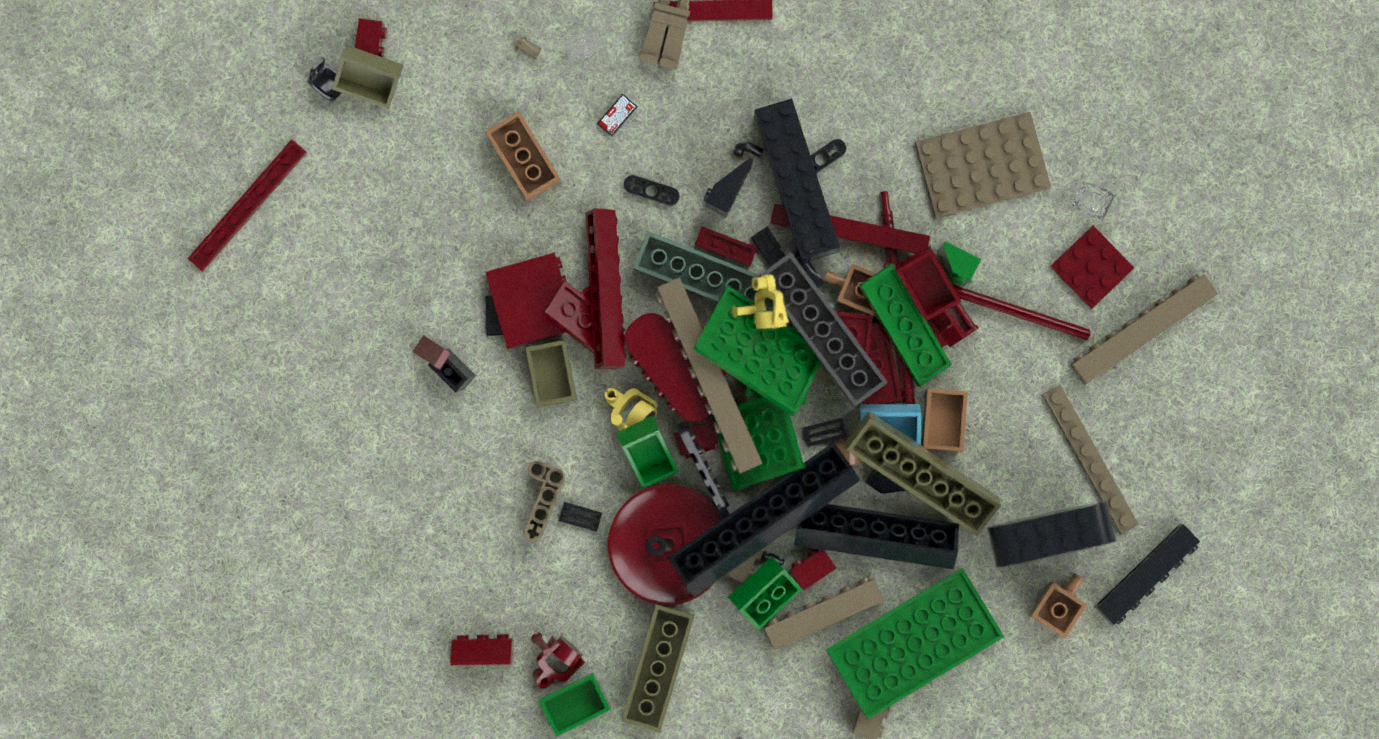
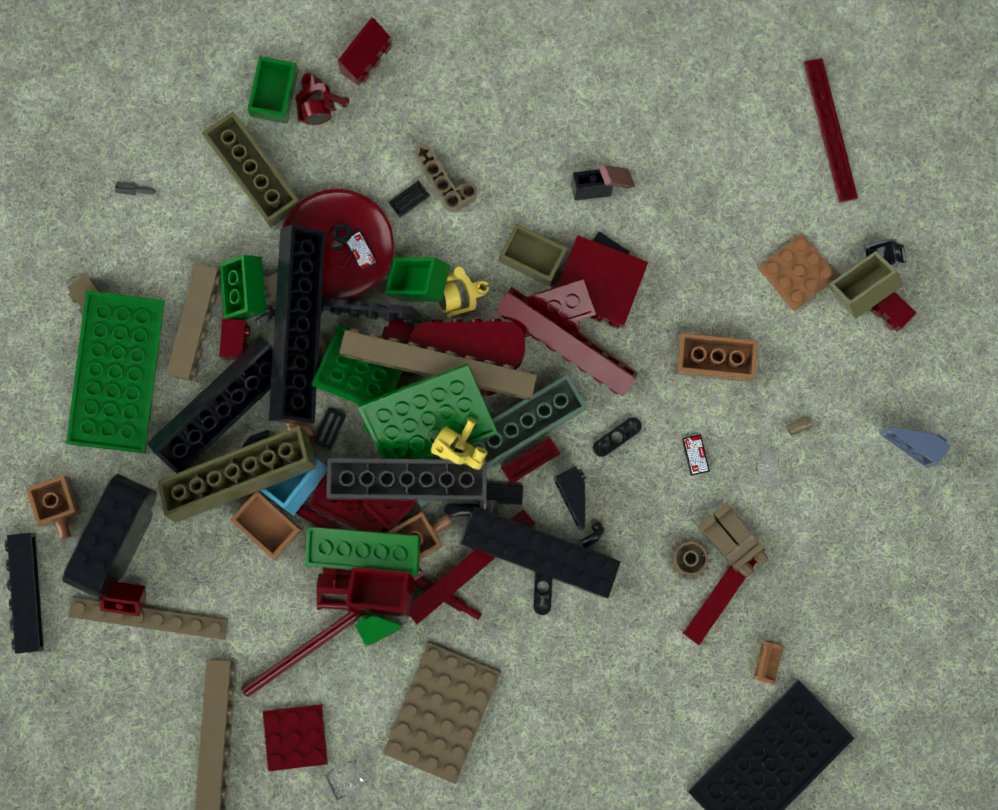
camera: 115 degrees right, 5 degrees down
(395, 143) = (797, 272): none -> medium nougat plate
(657, 520) = (361, 251): none -> tile
(707, 46) = (700, 558): none -> dark tan gear
(1090, 487) = (124, 599): none -> dark red brick

